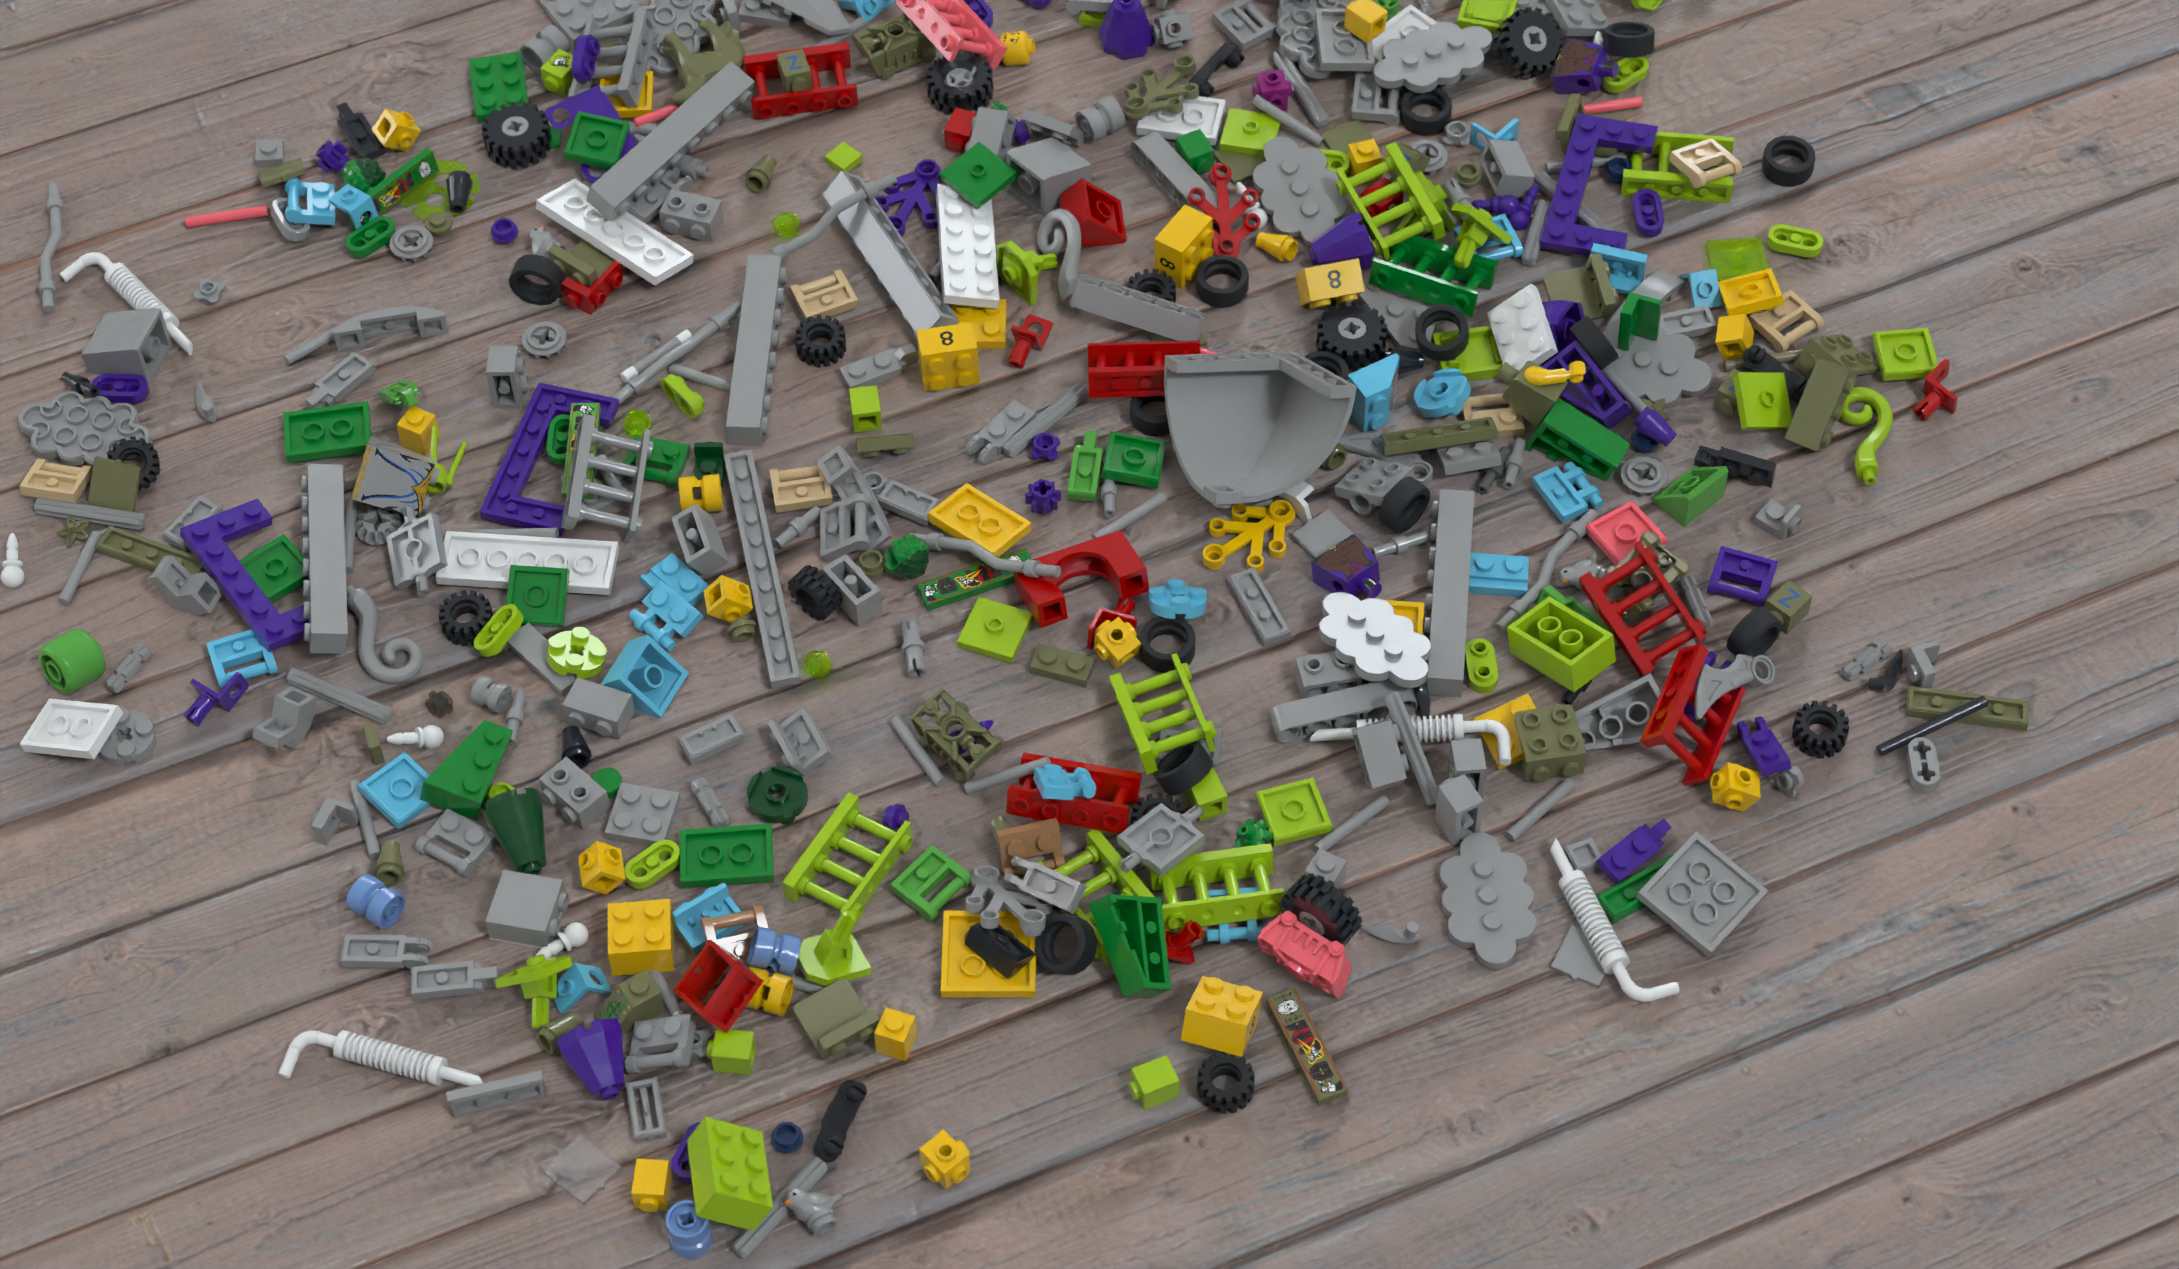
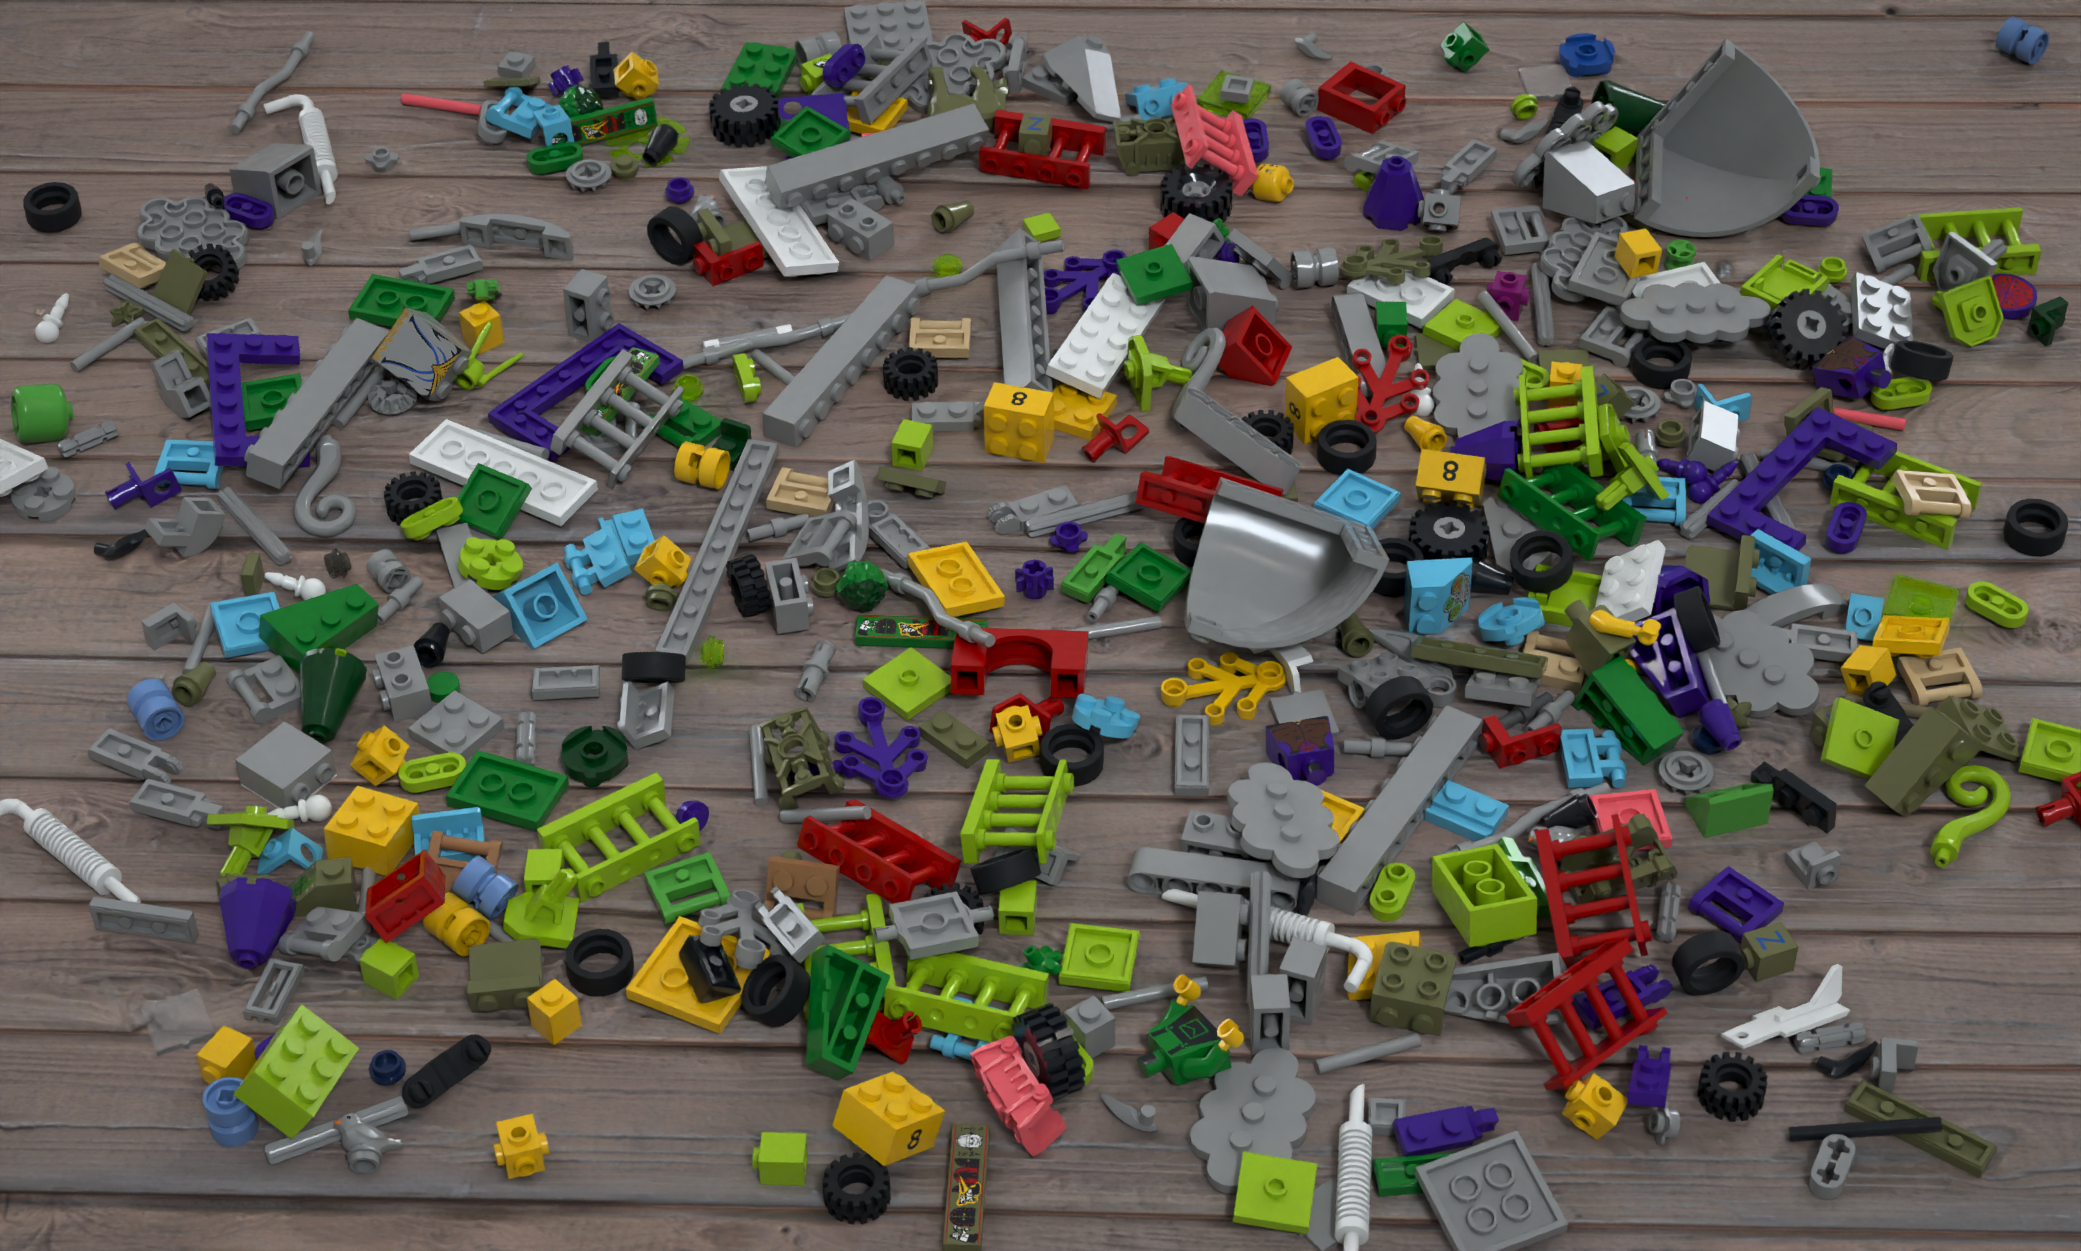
camera: 25 degrees right, 10 degrees down
(233, 760) = (121, 547): none -> black bar
(416, 550) = (405, 424): light grey plate -> none
(699, 540) = (672, 503): light grey brick -> none
(784, 698) = (653, 667): none -> black tyre
(808, 916) = (542, 867): none -> lime brick
(897, 956) = (605, 982): none -> black tyre
(1036, 724) = (889, 781): none -> dark purple plant
(1057, 784) = (859, 831): medium azure plate -> none
(1258, 327) = (1358, 499): none -> medium azure plate
(1409, 859) = (1187, 1042): none -> torso
(1498, 509) = (1520, 748): none -> red bracket
(1542, 954) = (1275, 1193): none -> lime plate
(1582, 547) = (1574, 813): none -> black cone
(1638, 317) = (1755, 608): green panel -> none
(1716, 682) = (1627, 989): light grey piece -> none
(1824, 663) = (1779, 1021): none -> white piece

